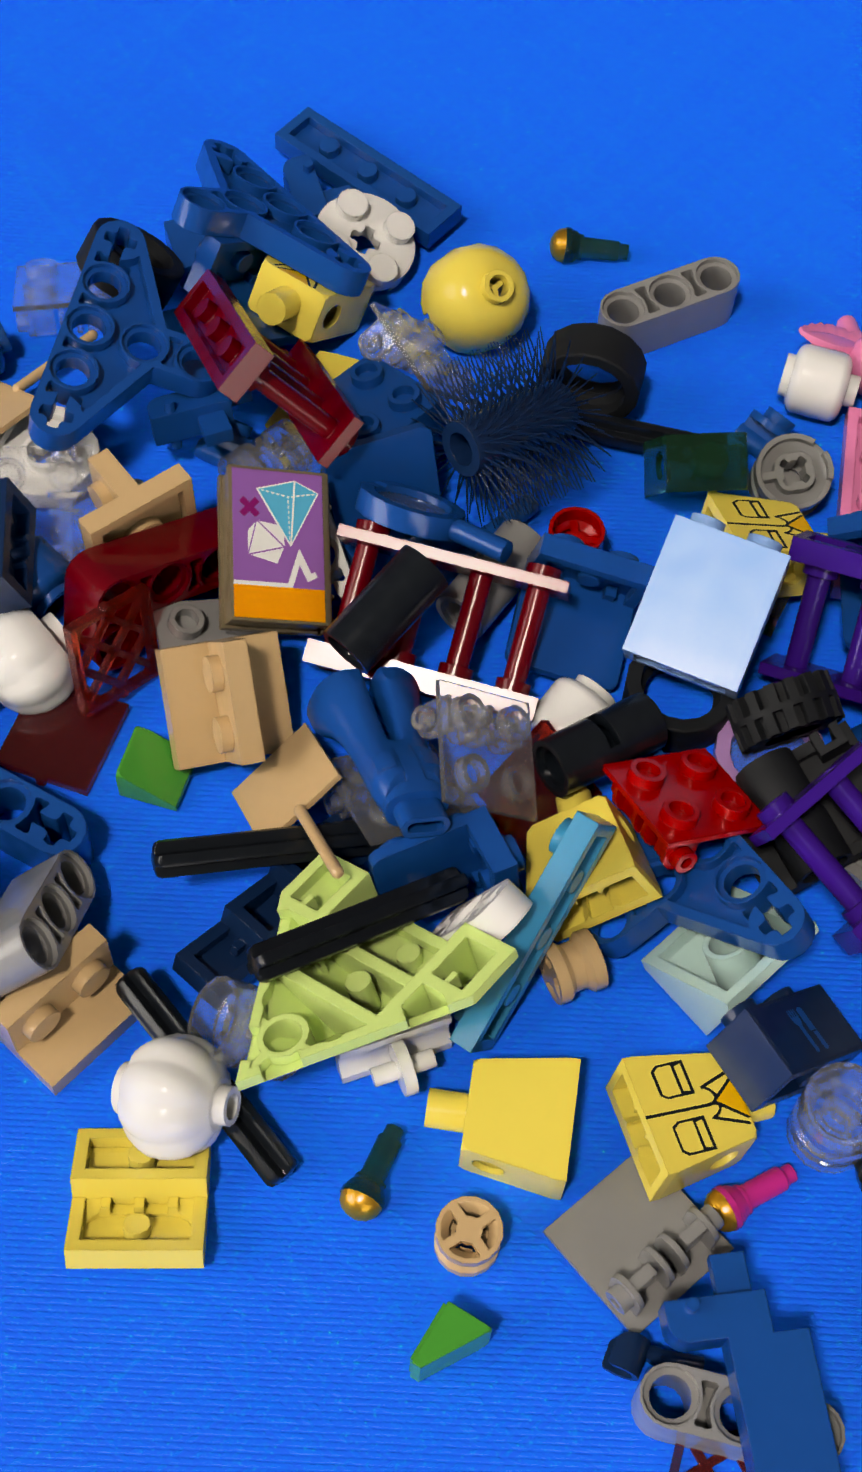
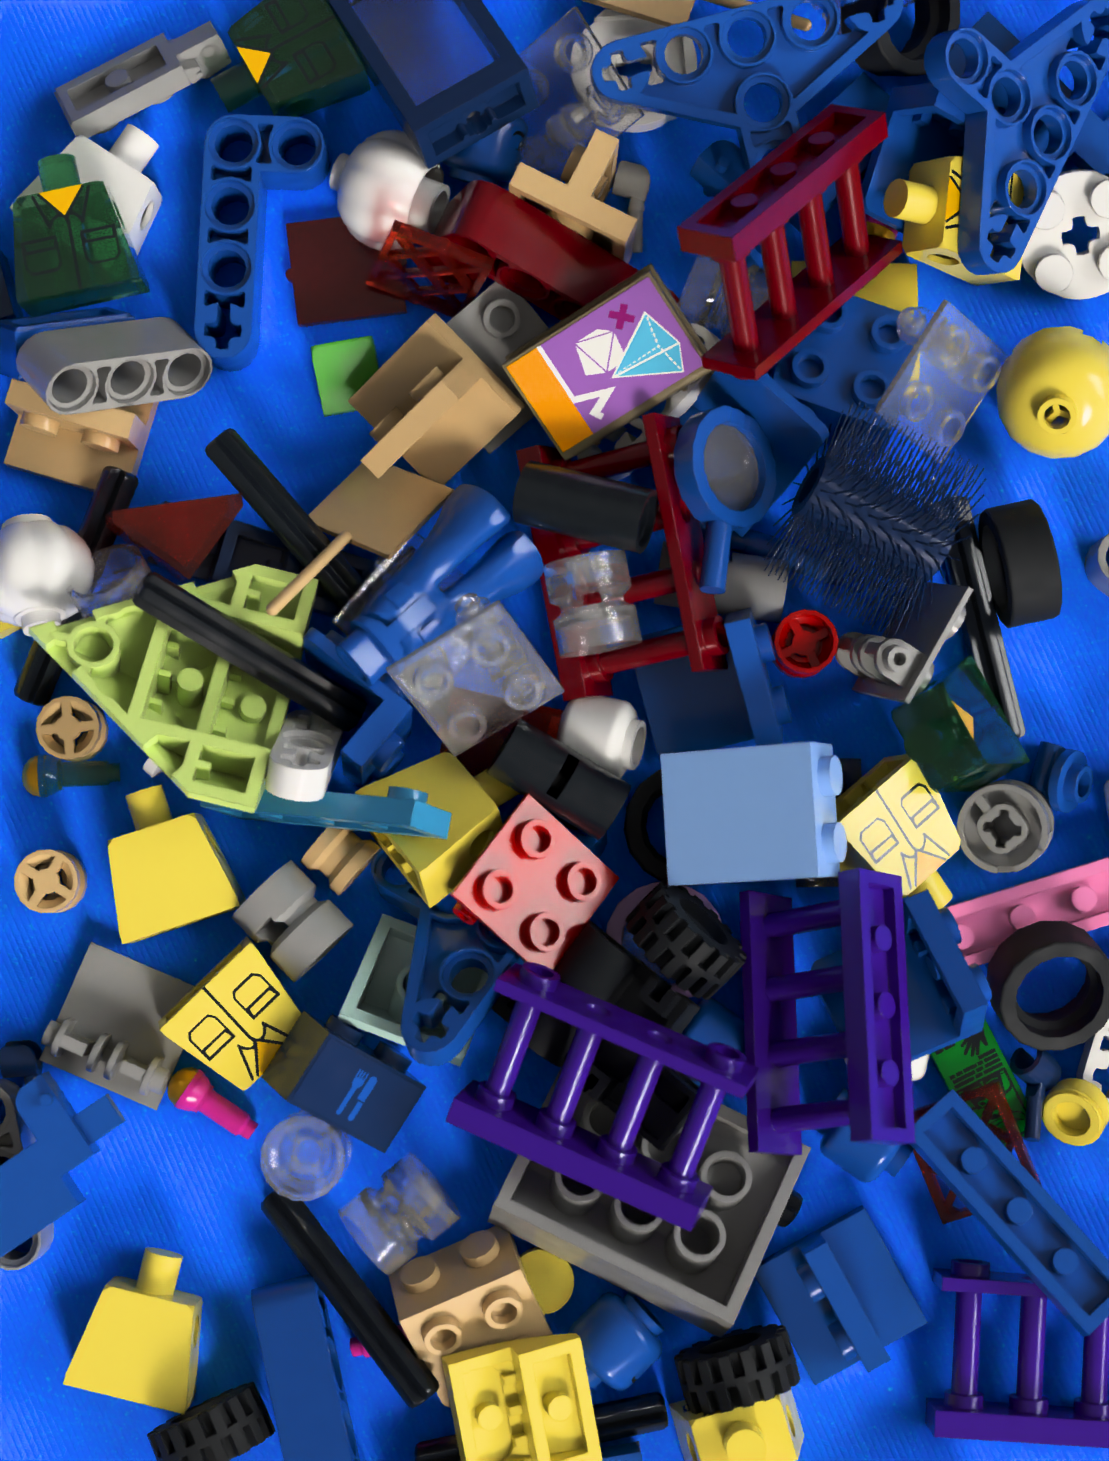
camera: 70 degrees right, 25 degrees up
(211, 944) = (176, 533): none -> clear red slope
(336, 1130) = (59, 728): none -> tan wheel
(490, 645) = (595, 626): none -> clear wheel
(628, 476) = (904, 664): none -> light grey hinge
(632, 1015) = (292, 920): none -> light grey wheel

